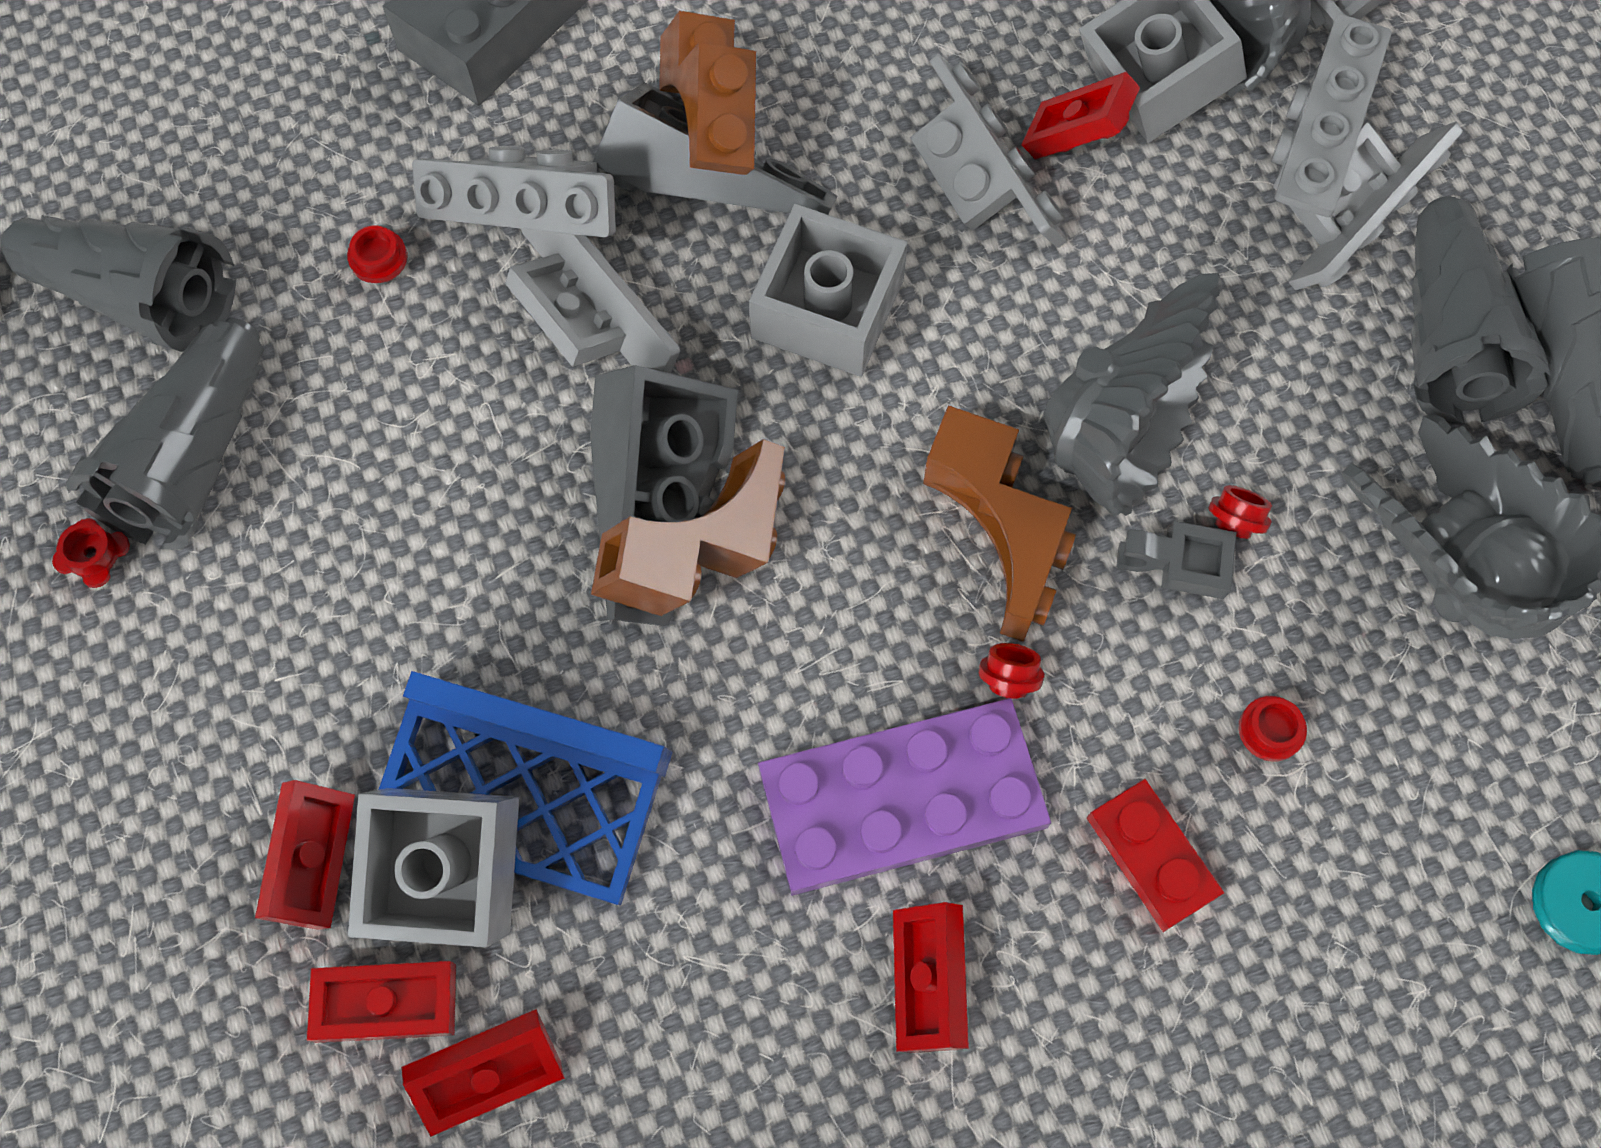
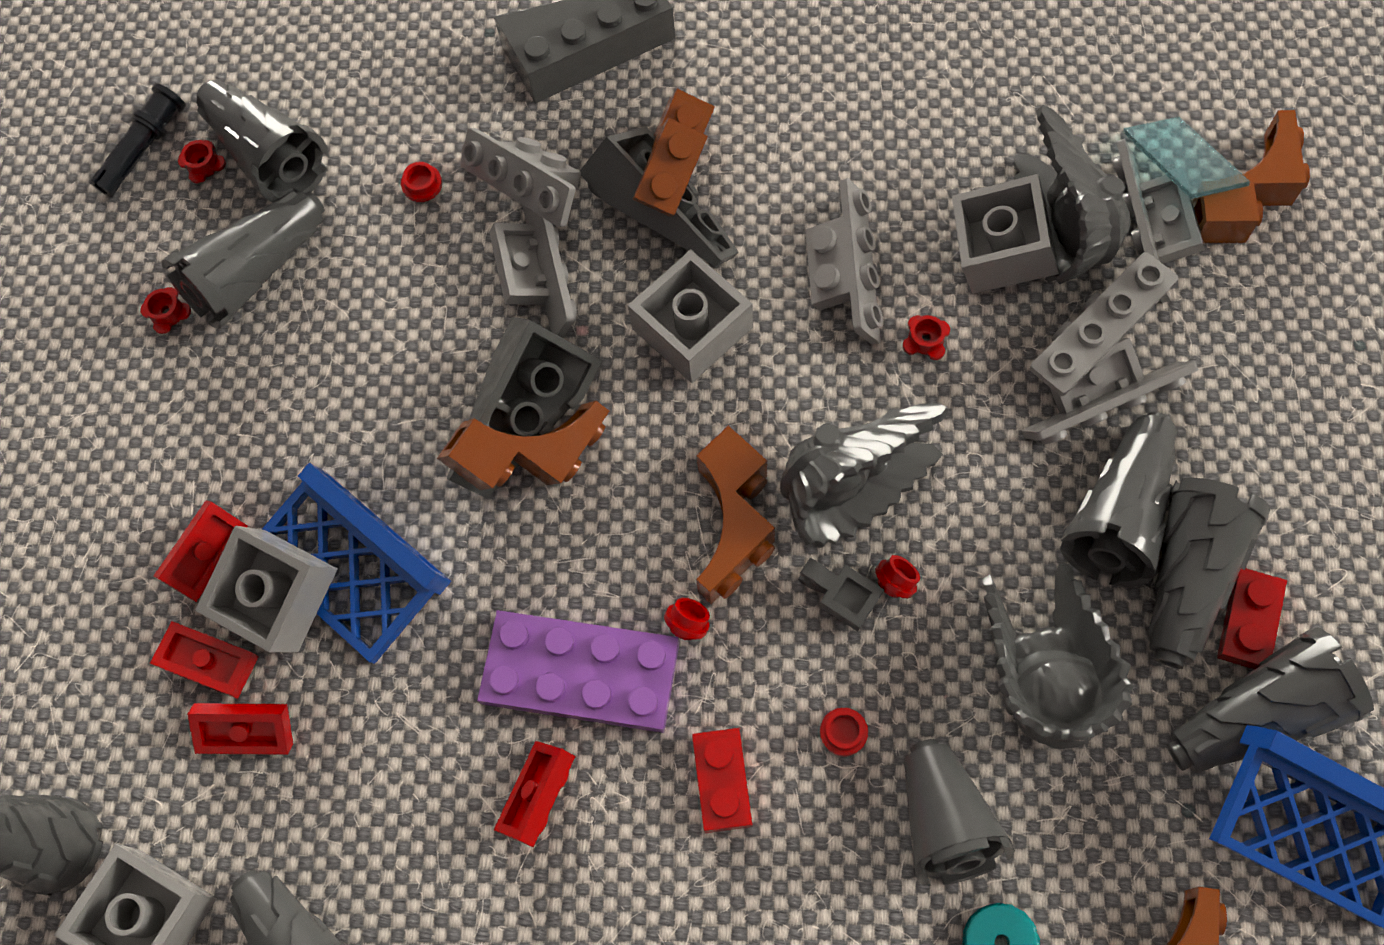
camera: 30 degrees right, 0 degrees up
(39, 323) = (193, 155): none -> red plate
(1081, 116) = (925, 259): red plate -> none
(1125, 199) = (929, 326): none -> red plate
(1459, 773) = (949, 818): none -> dark grey cone

